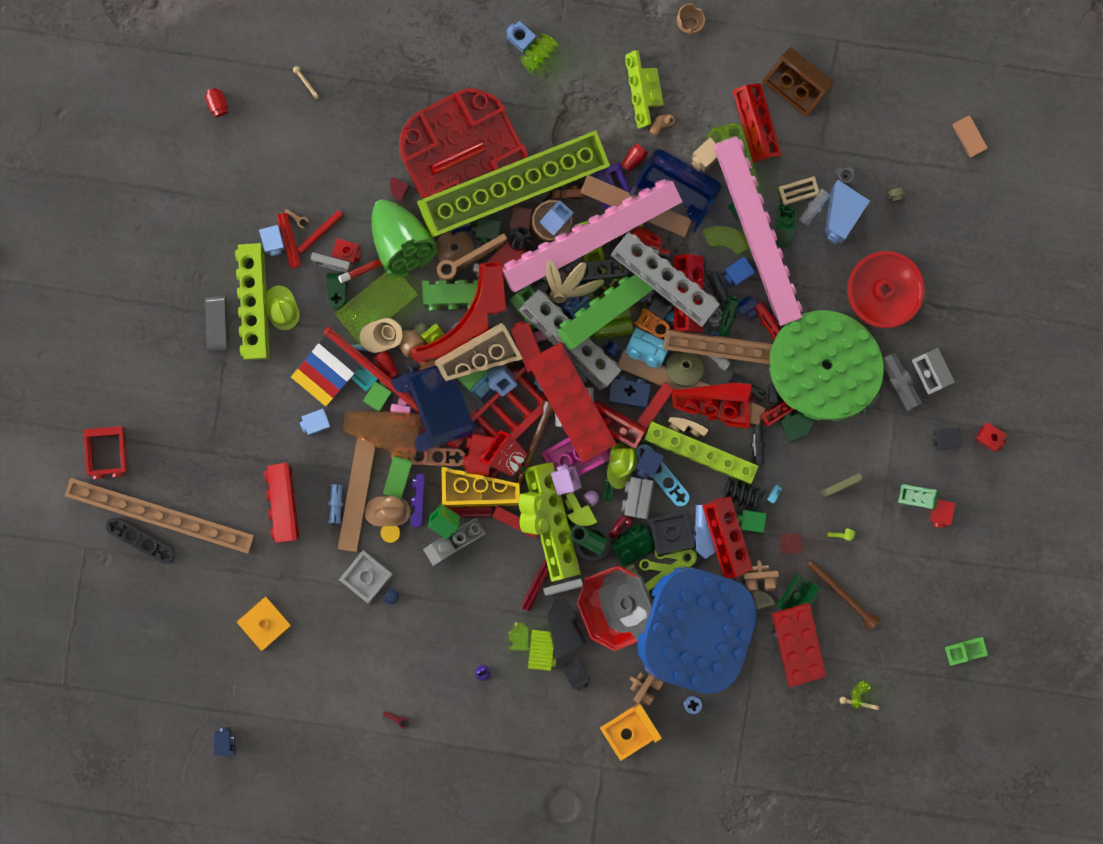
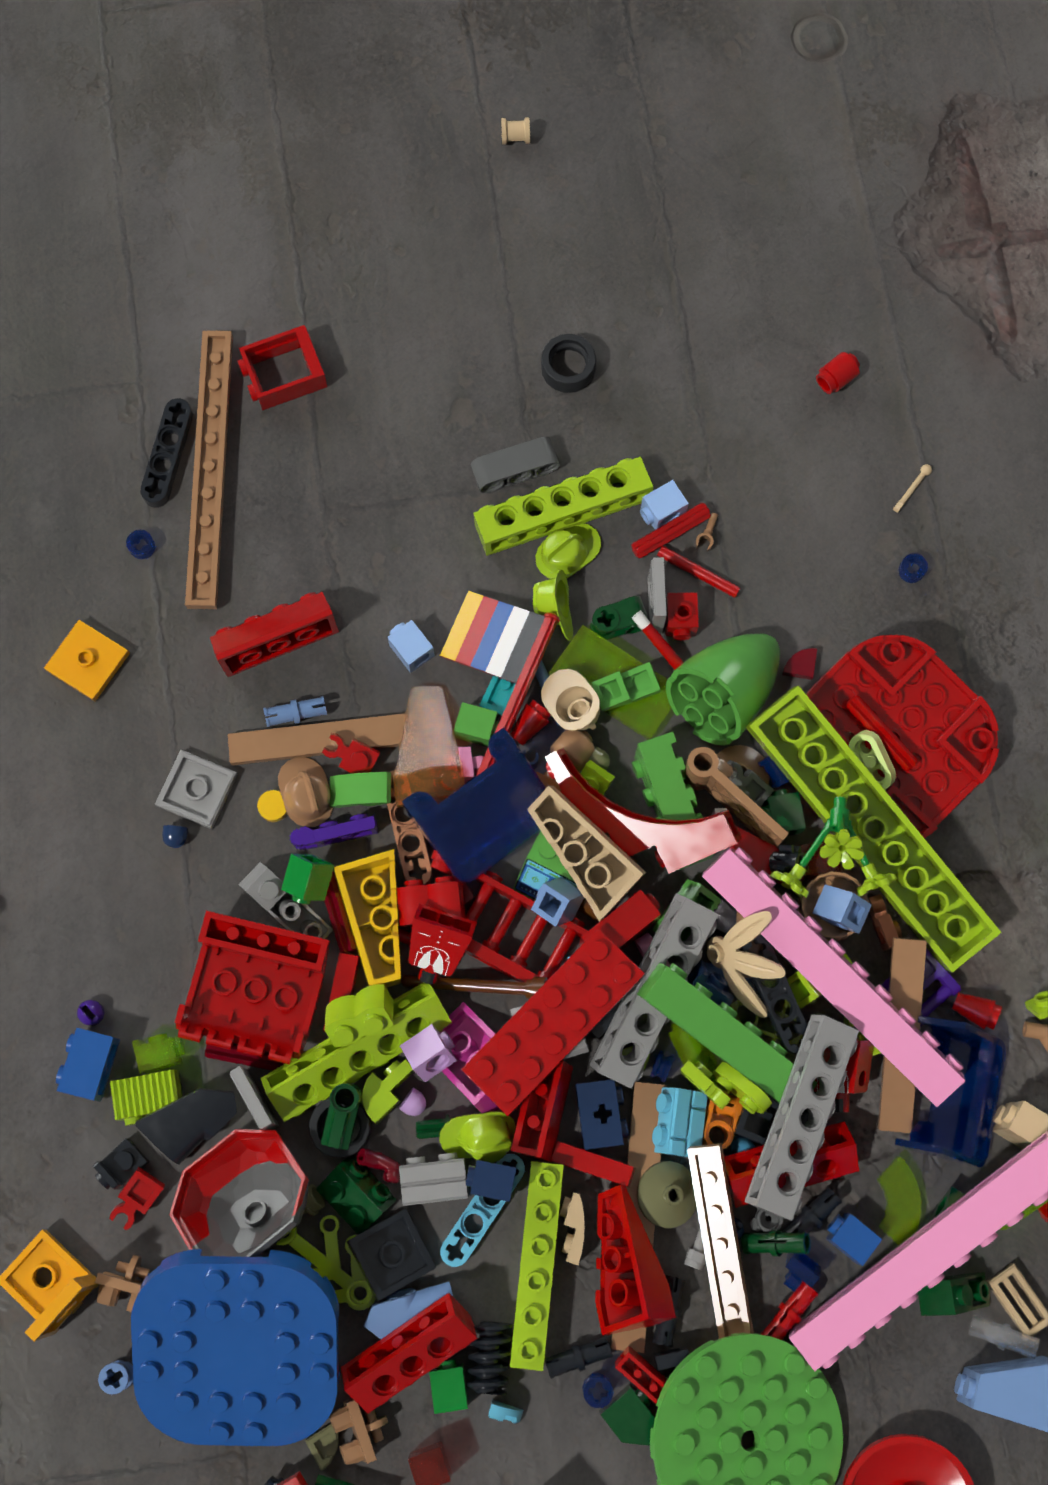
camera: 80 degrees right, 10 degrees down
(157, 255) = (574, 343): none -> black tyre
(202, 569) = (134, 538): none -> clear blue bush
(314, 328) = (553, 597): none -> lime piece
(355, 105) = (913, 577): none -> clear blue bush
(376, 475) = (355, 757): none -> red plate
(382, 299) = (626, 687): none -> bright green slope
(464, 246) = (750, 783): none -> dark grey plate
(472, 168) = (874, 758): none -> yellowish green plate
(498, 572) = (253, 988): none -> red slope
(513, 679) = (87, 1064): none -> blue brick
(525, 210) = (838, 849): none -> lime plant
(596, 669) = (138, 1195): none -> red plate
(626, 328) = (699, 1076): none -> lime plate
(645, 304) = (750, 1095): none -> lime plate
(783, 437) = (604, 1398): none -> clear blue bush

